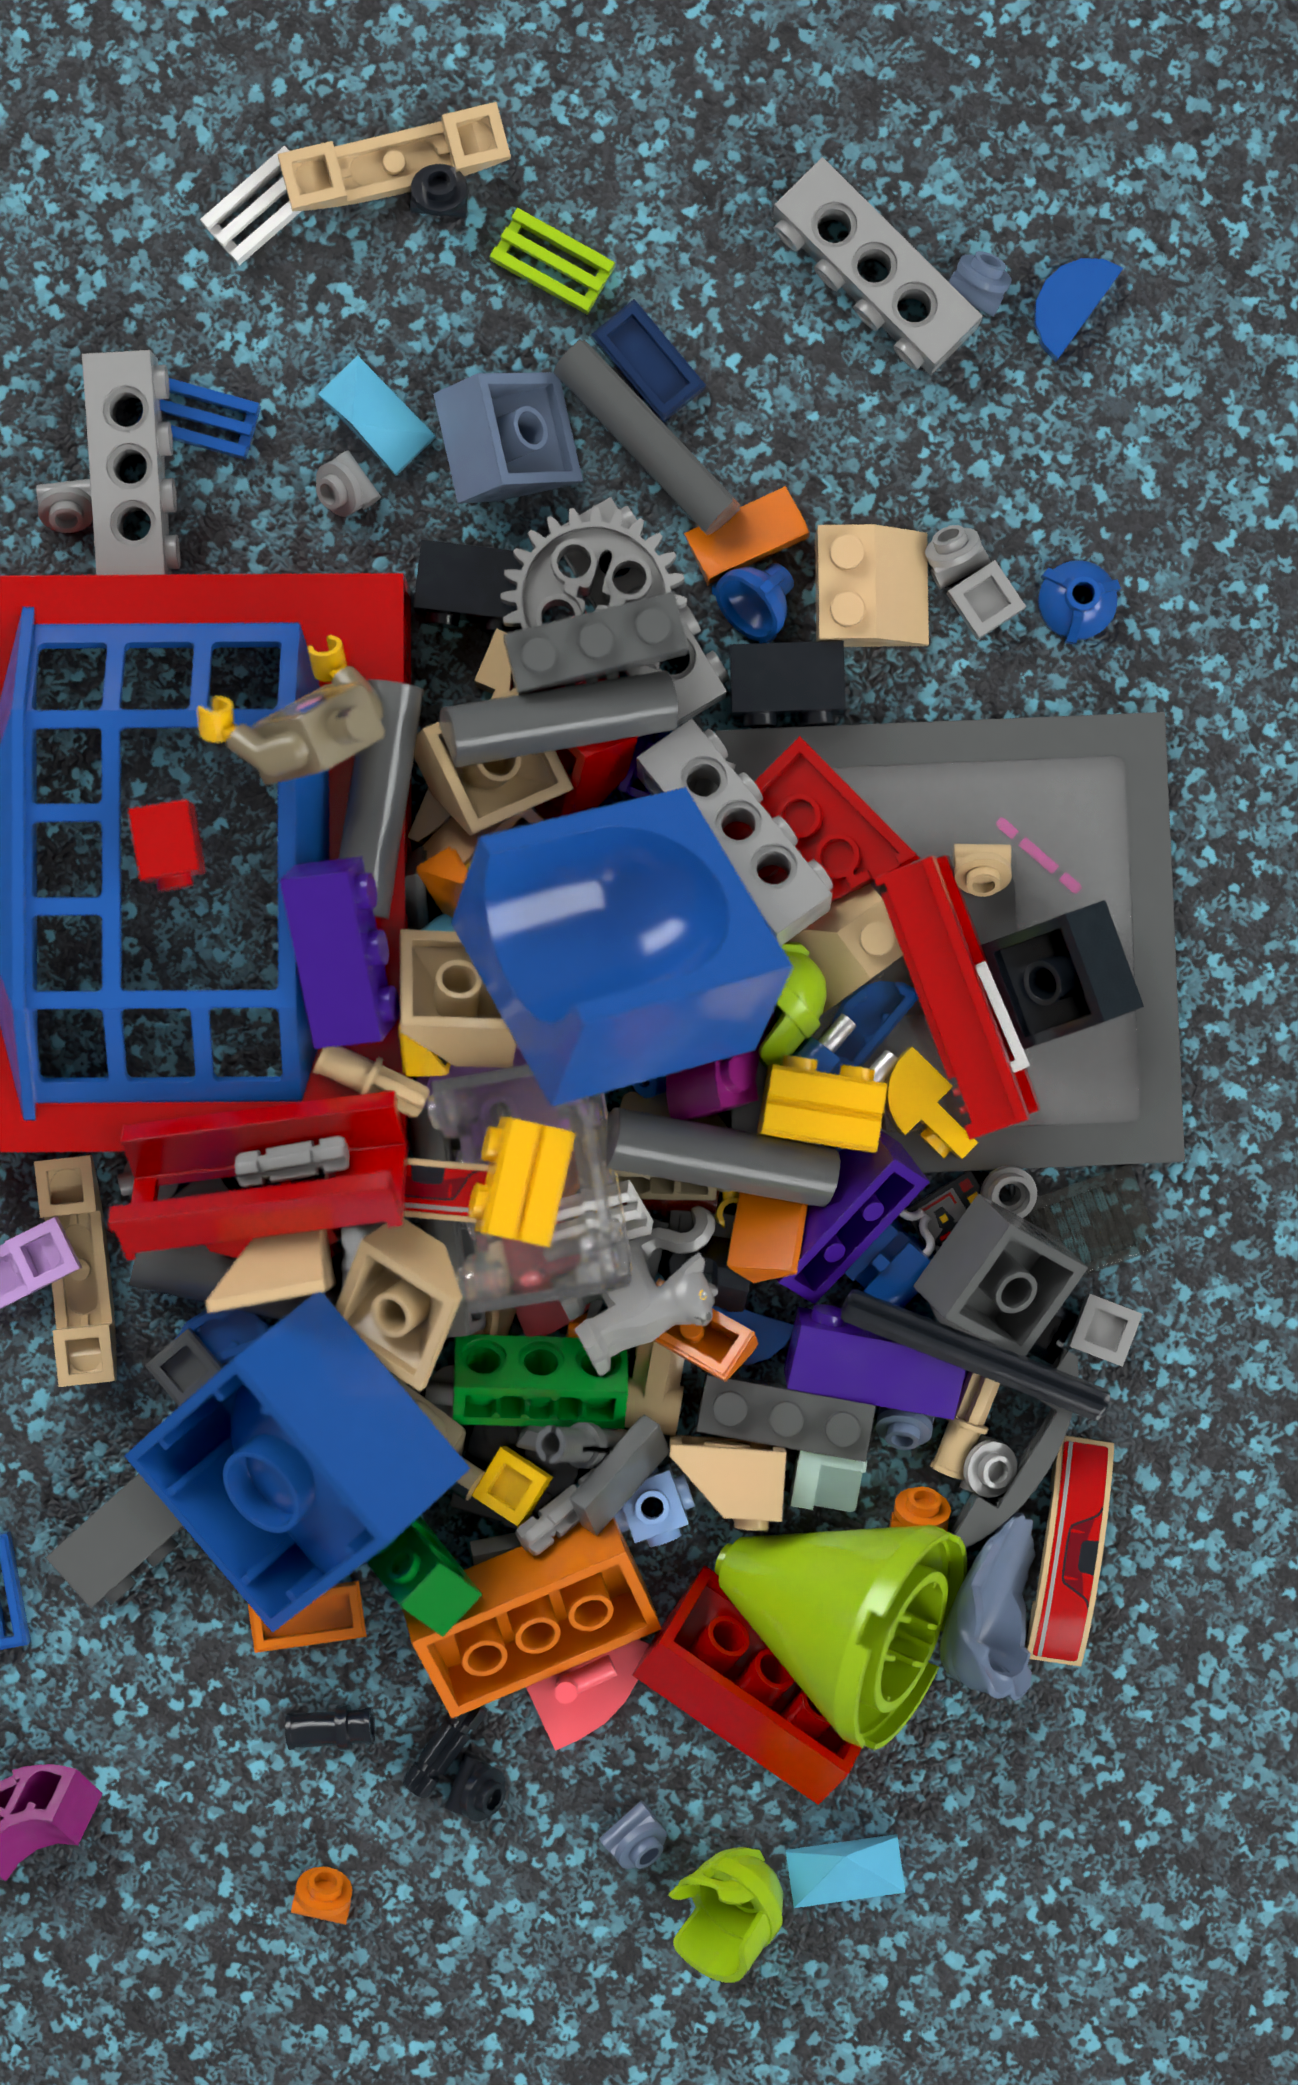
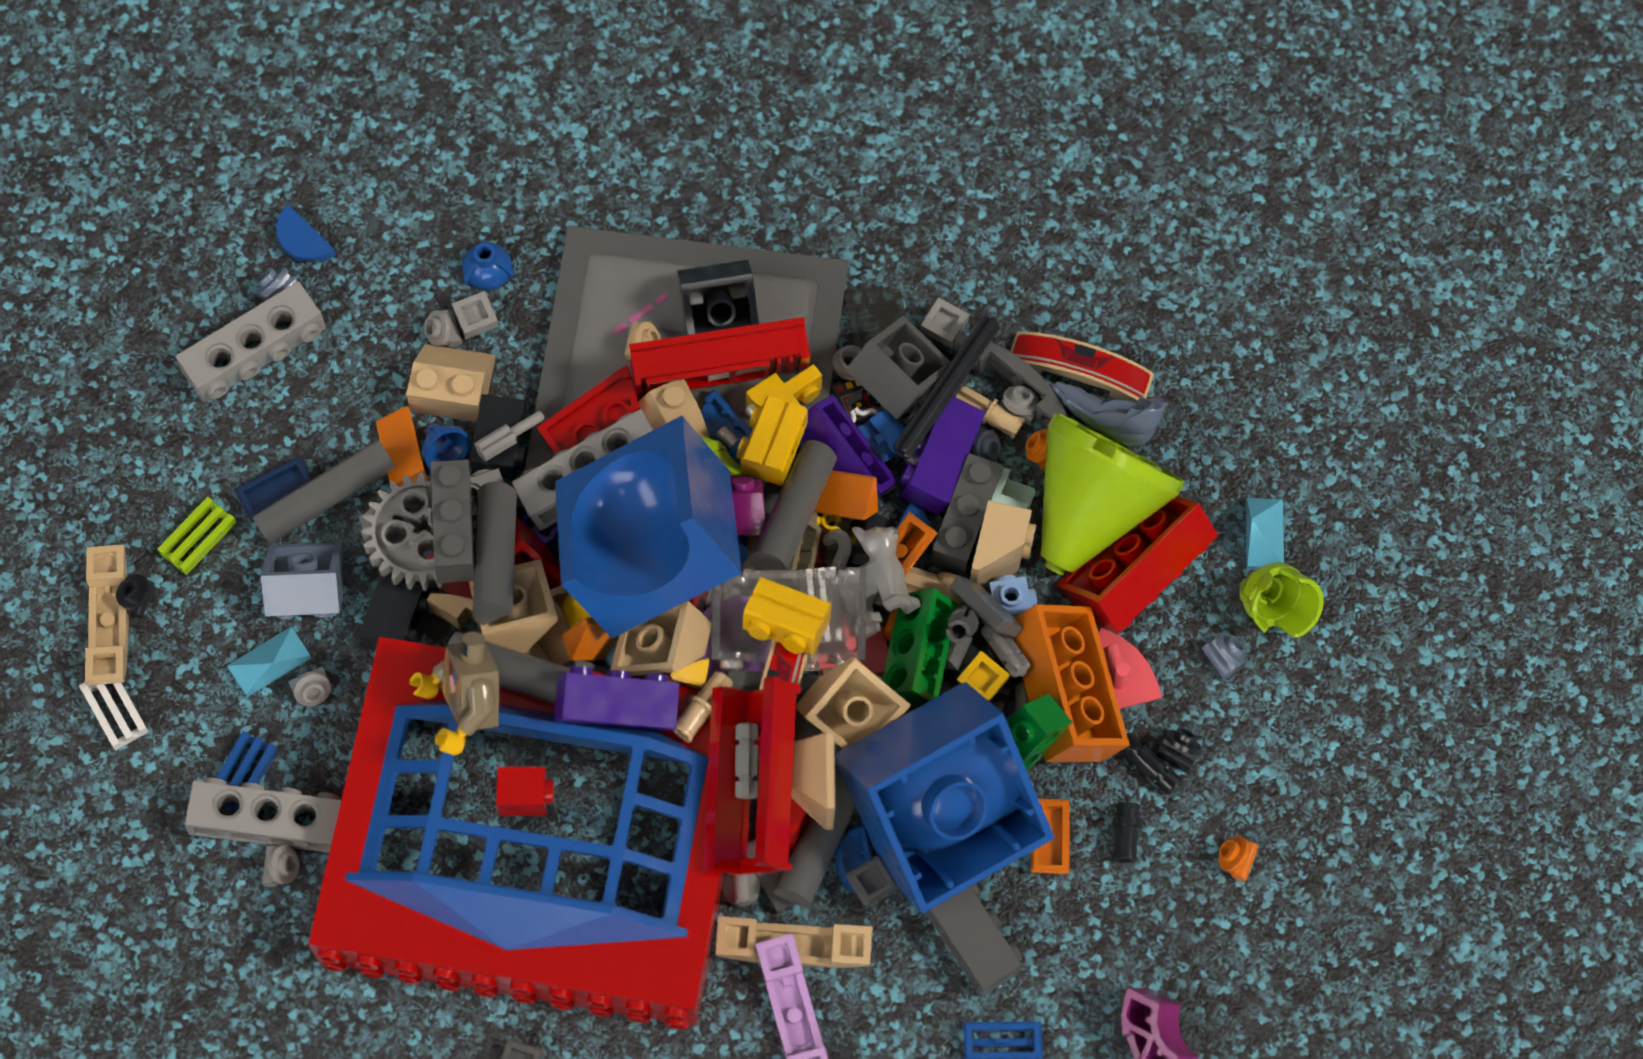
camera: 85 degrees left, 20 degrees down
(773, 692) = (505, 437): none -> light grey axle

